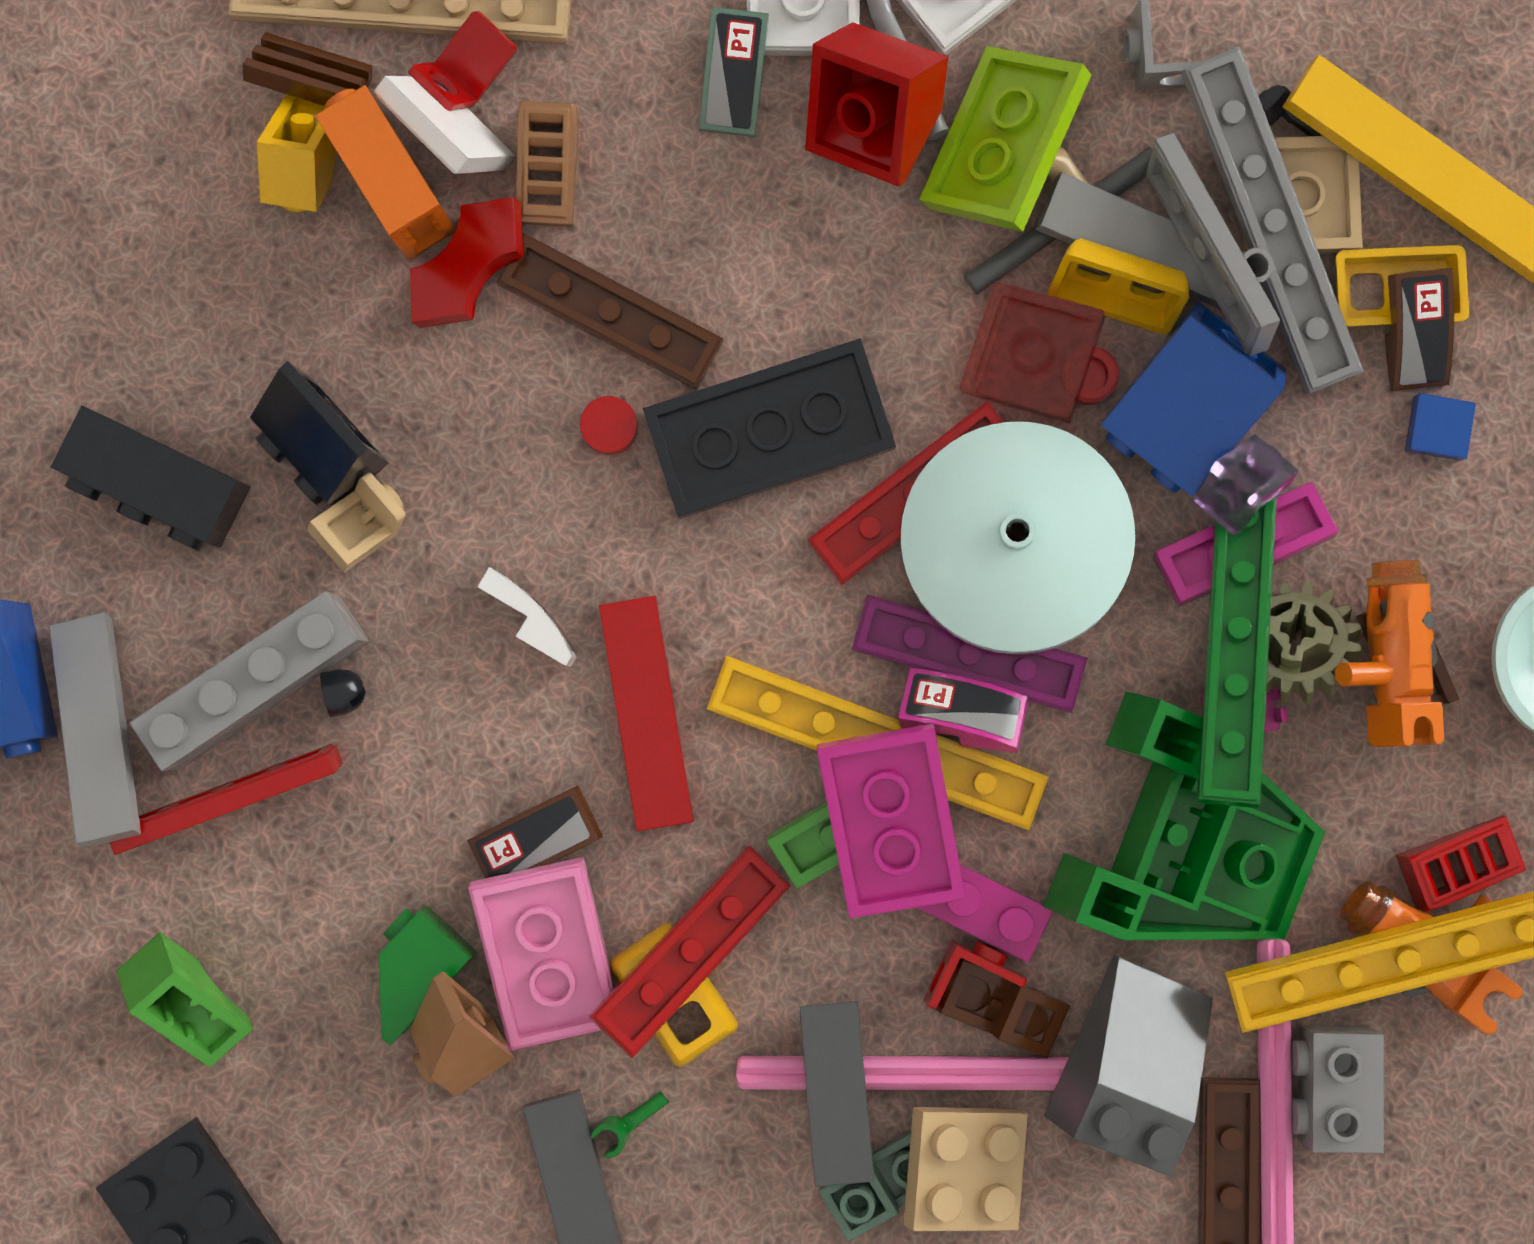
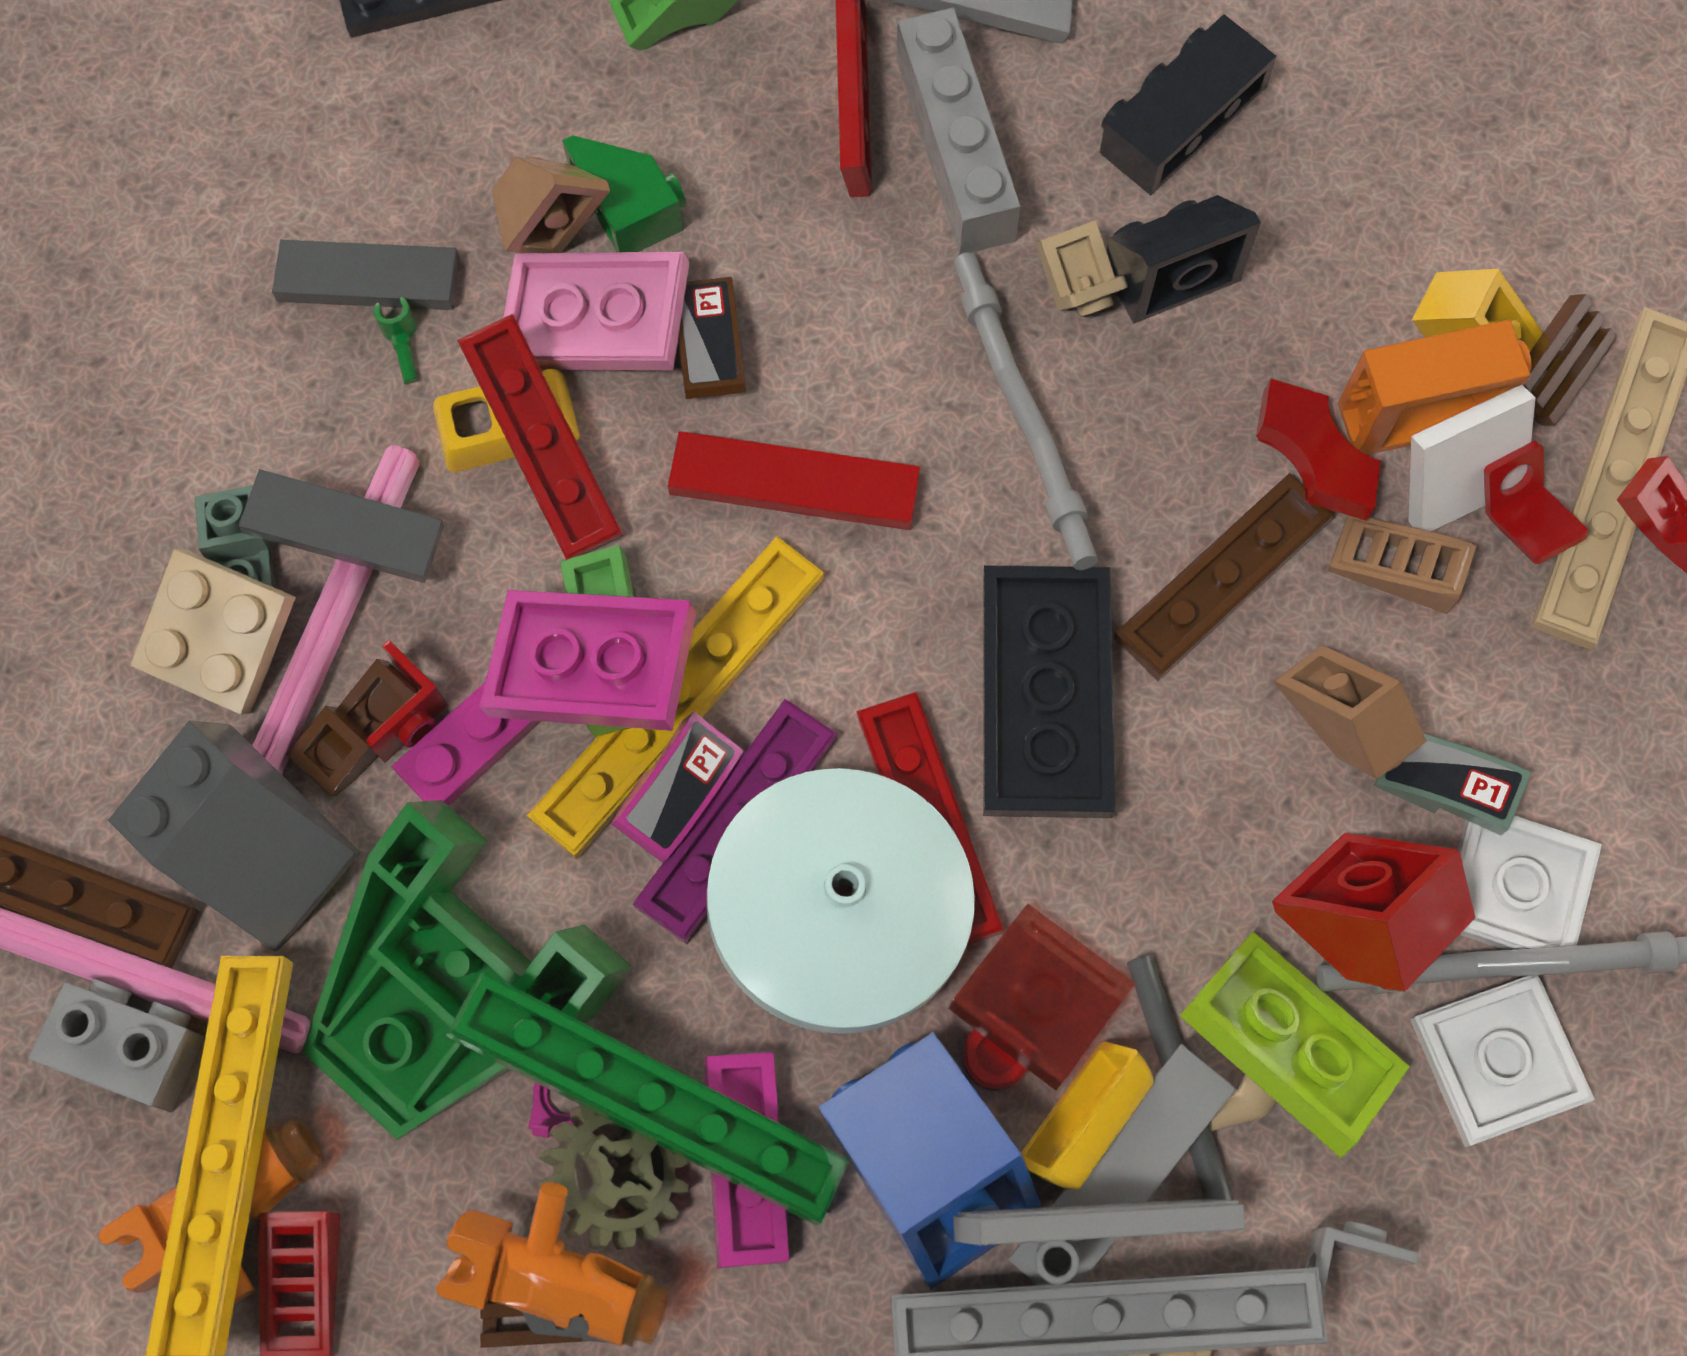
camera: 110 degrees right, 15 degrees down
(342, 691) = (919, 207): black hinge -> none
(539, 627) = (916, 402): white slope -> none
(600, 463) = (1064, 504): none -> light grey bar
(609, 425) = (1111, 534): red tile -> none
(702, 169) = (1353, 710): none -> medium nougat slope
(1244, 483) = (813, 1166): clear purple bracket -> none

